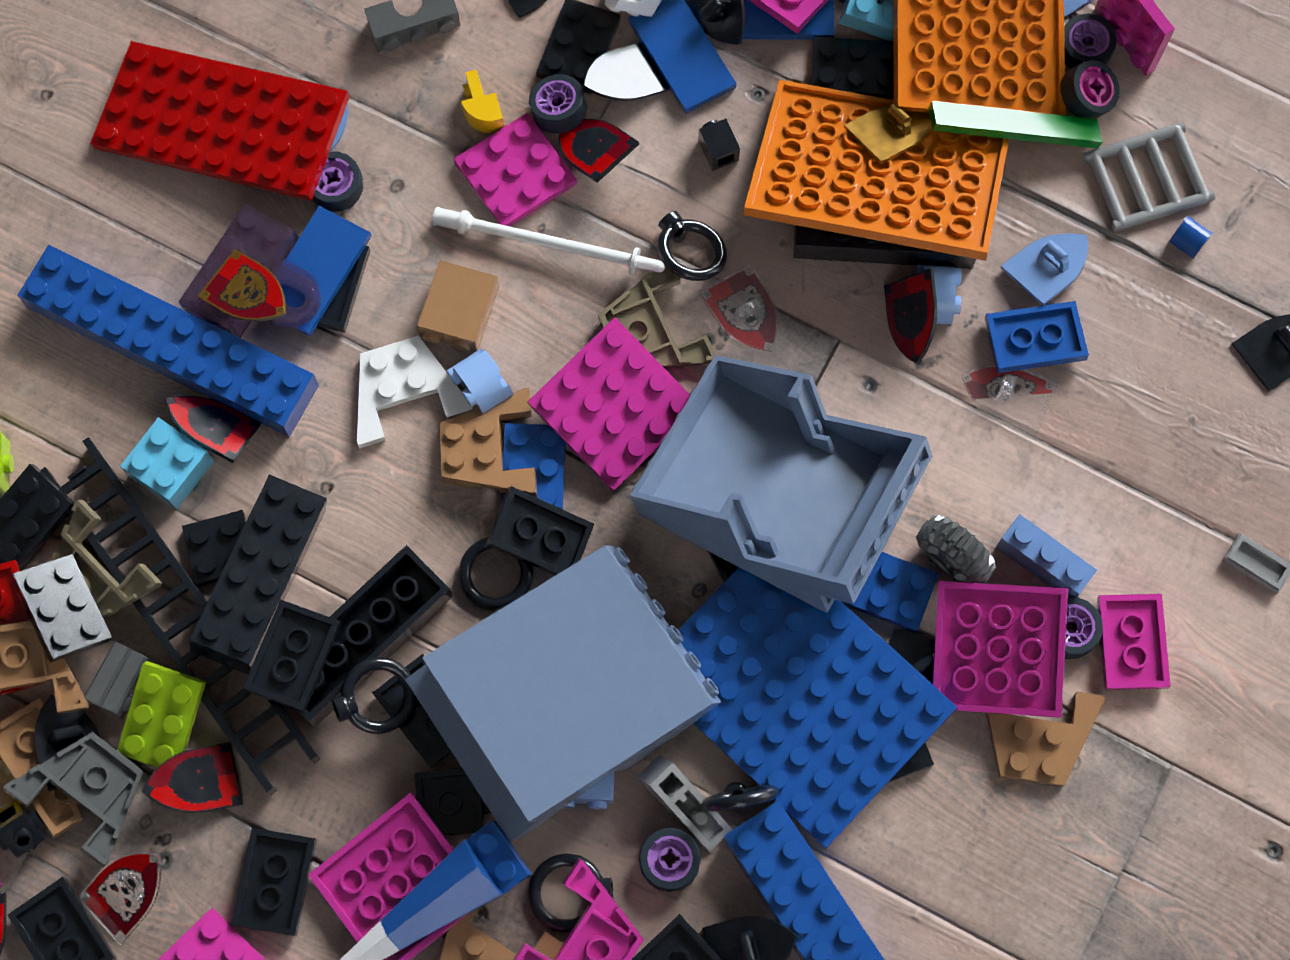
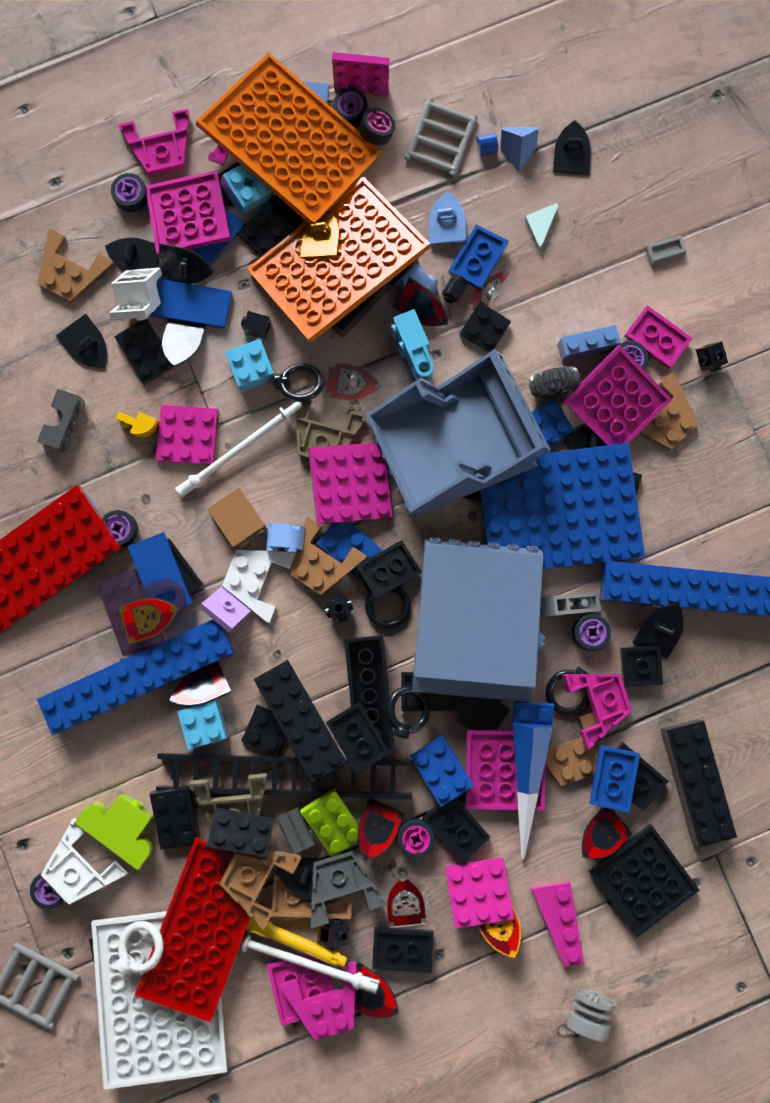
camera: 55 degrees left, 10 degrees up
(203, 840) = (412, 828): none -> wheel
(332, 377) = (225, 608): none -> lavender plate
(334, 804) = (442, 770): none -> blue plate
(445, 523) = (339, 616): none -> black brick
(547, 108) = (160, 386): wheel -> none
(596, 147) = (208, 386): shield -> none
(662, 174) = (250, 365): none -> medium azure brick
(750, 796) = (603, 561): black piece -> none
(852, 341) = (412, 344): none -> medium azure brick
(954, 416) = (485, 327): none -> black plate
(969, 339) = (454, 288): none -> black brick
(1014, 124) = (367, 176): tile -> none
(1151, 379) = (540, 222): none -> light aqua tile
(1167, 730) = (712, 356): none -> black brick
(1226, 275) = (519, 144): none -> medium blue slope

